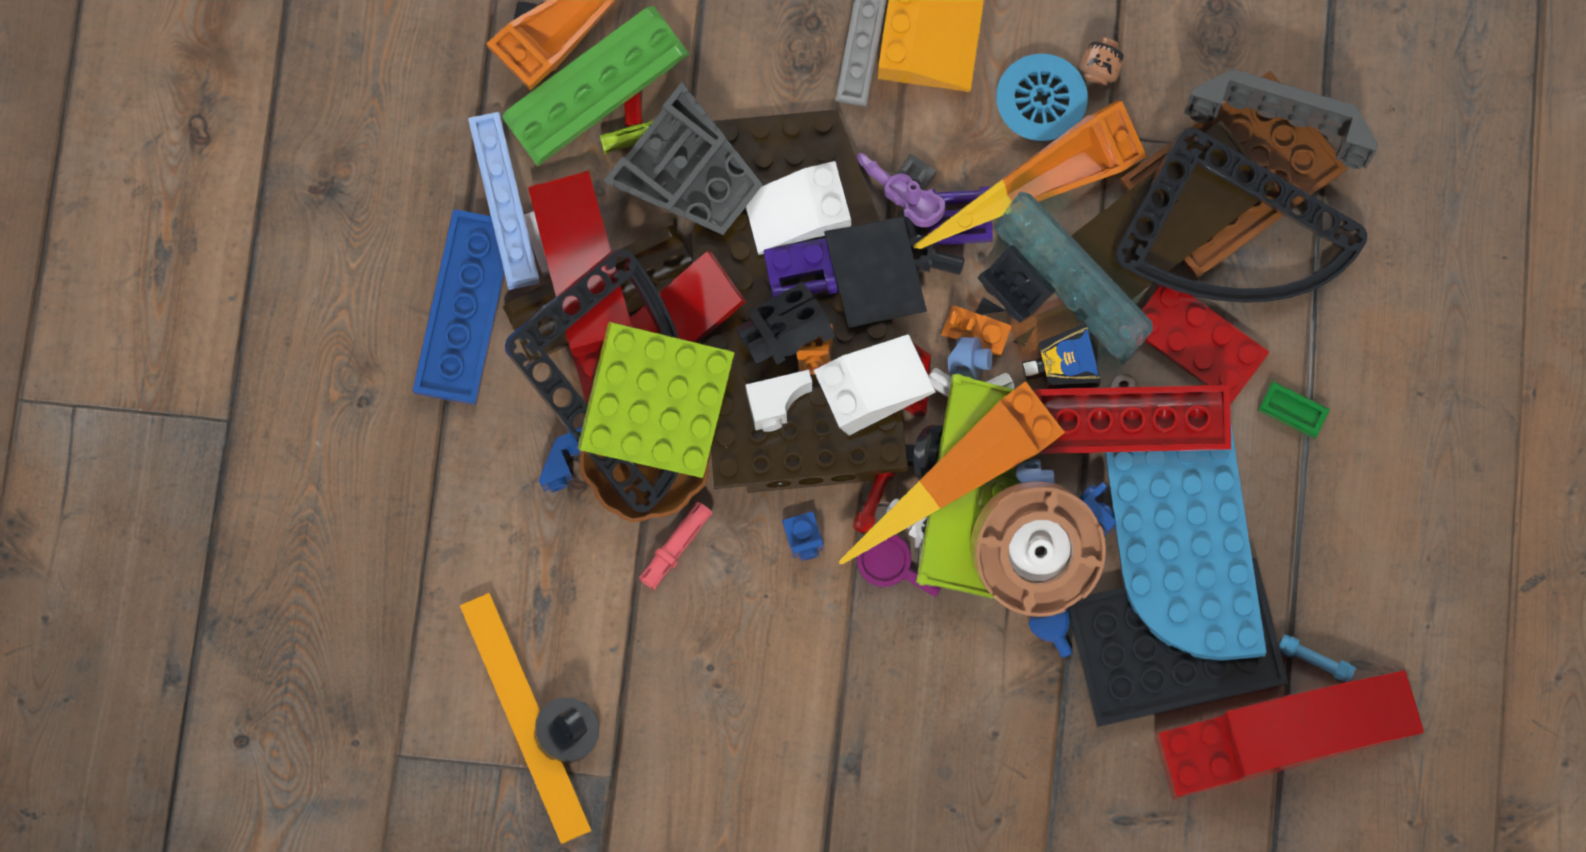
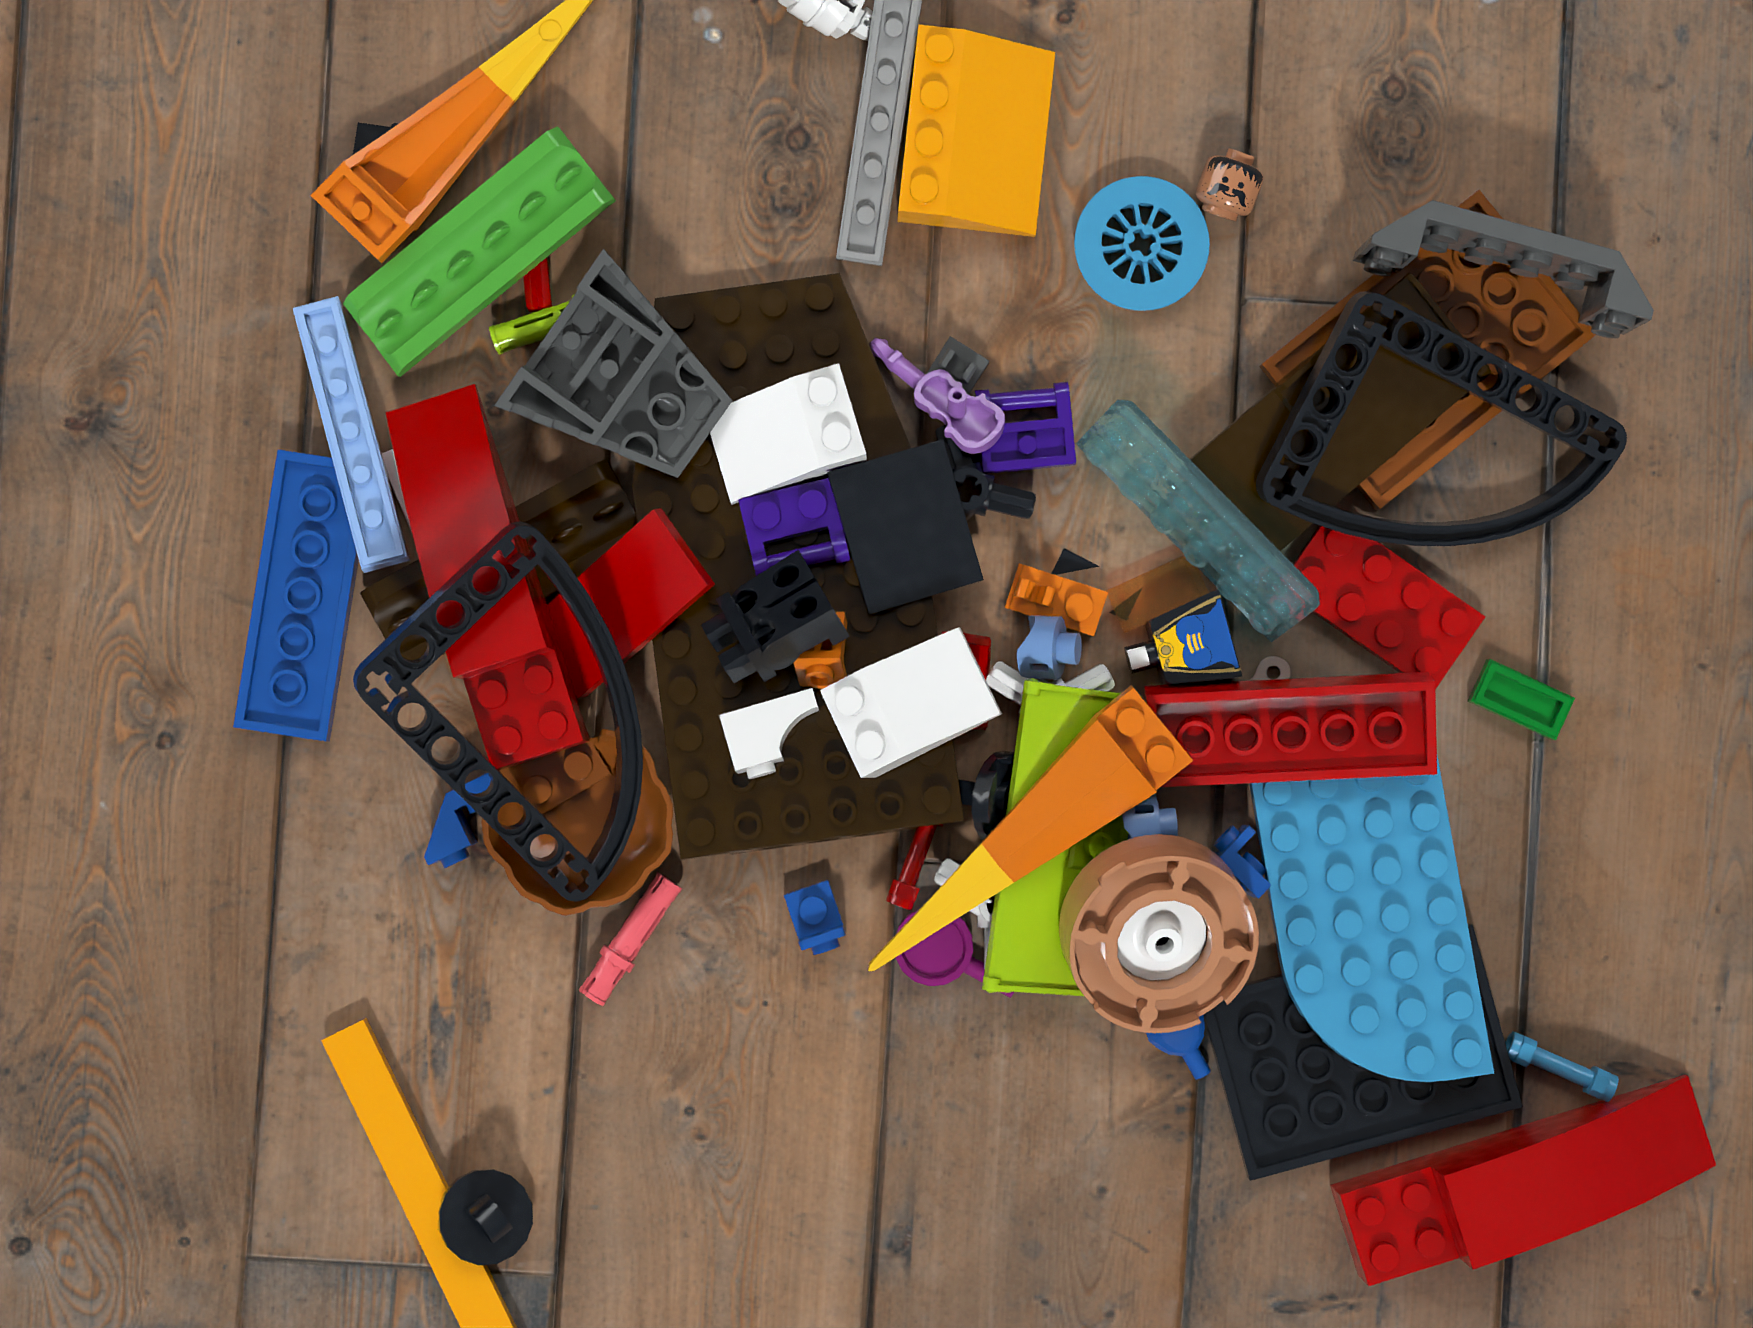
camera: 10 degrees left, 10 degrees up
(655, 400) = (585, 743): lime plate -> none
(1016, 284) = (1113, 531): black bracket -> none
(1083, 154) = (1207, 329): orange plate -> none

